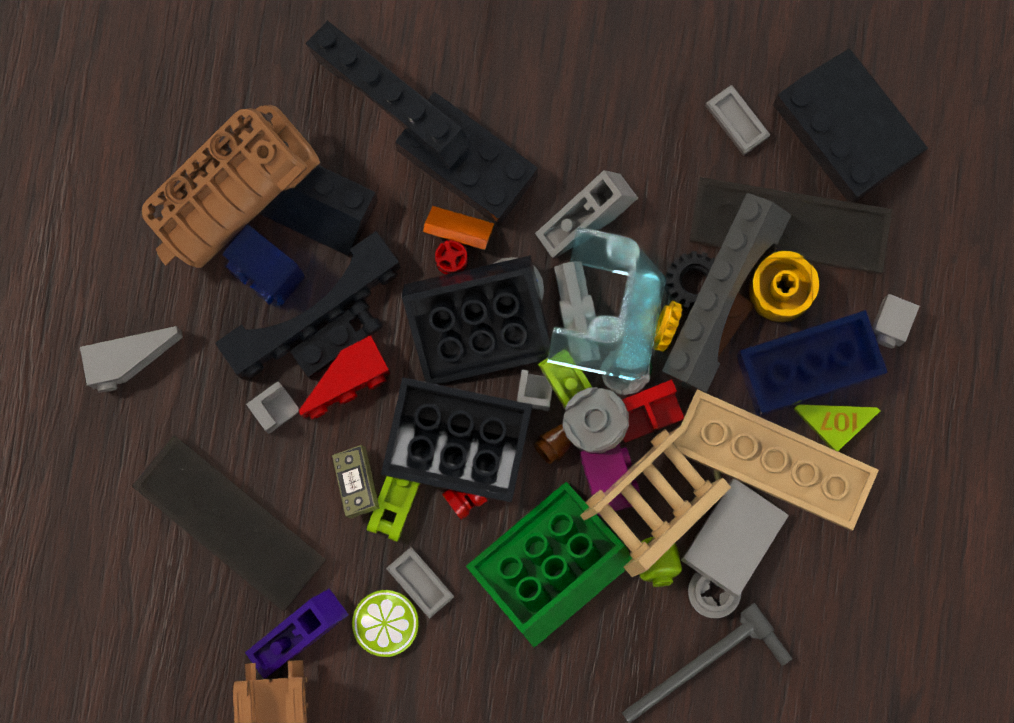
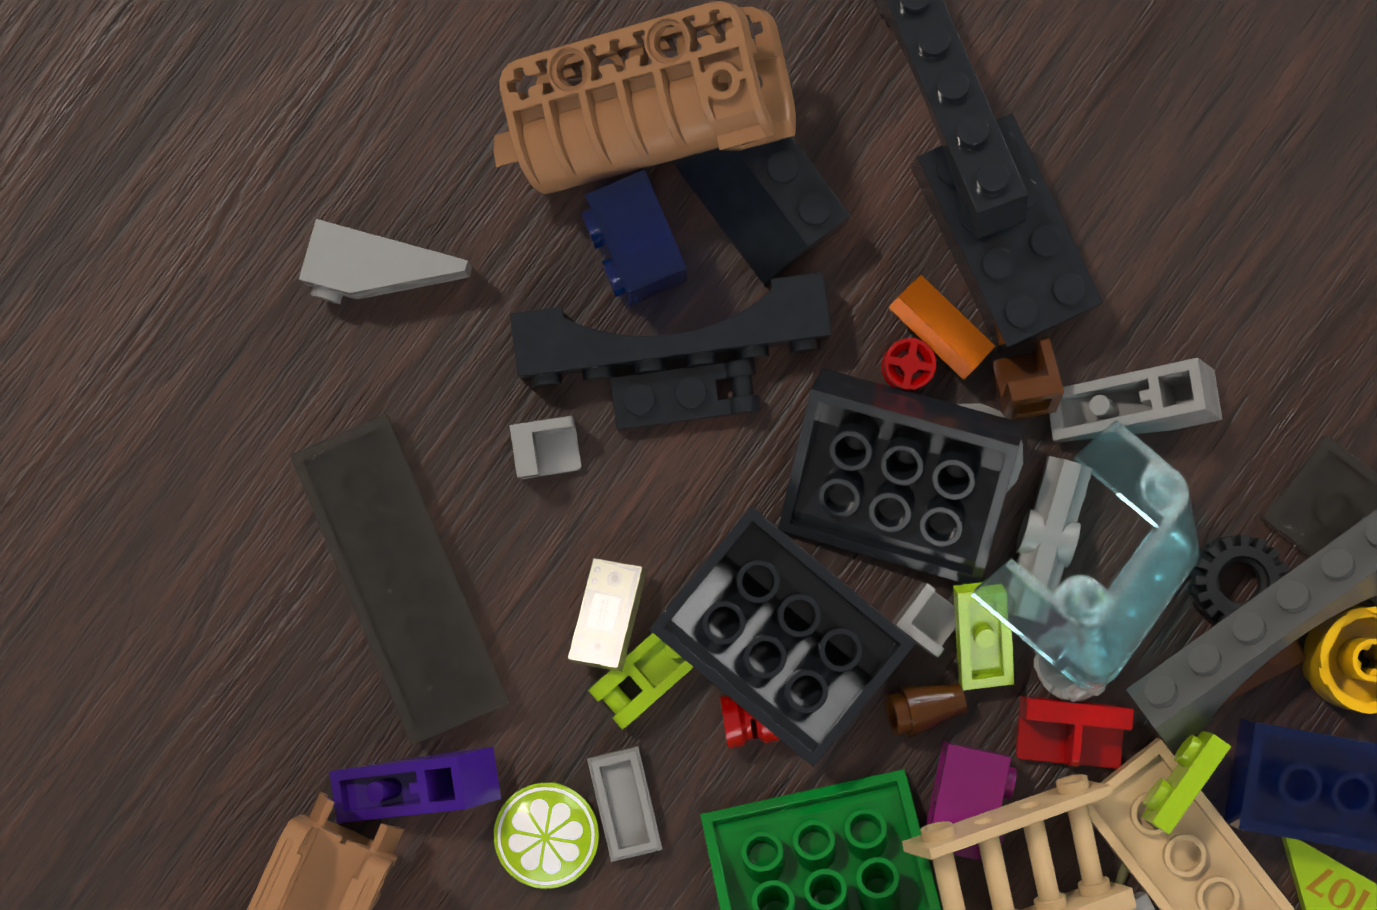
camera: 25 degrees right, 5 degrees up
(350, 372) = (684, 453): red slope -> none
(523, 233) = (1029, 382): none -> reddish brown panel
(595, 420) = (994, 711): light grey tile -> none
(667, 325) = (1171, 627): yellow gear -> none
(716, 417) = (1172, 797): none -> lime plate

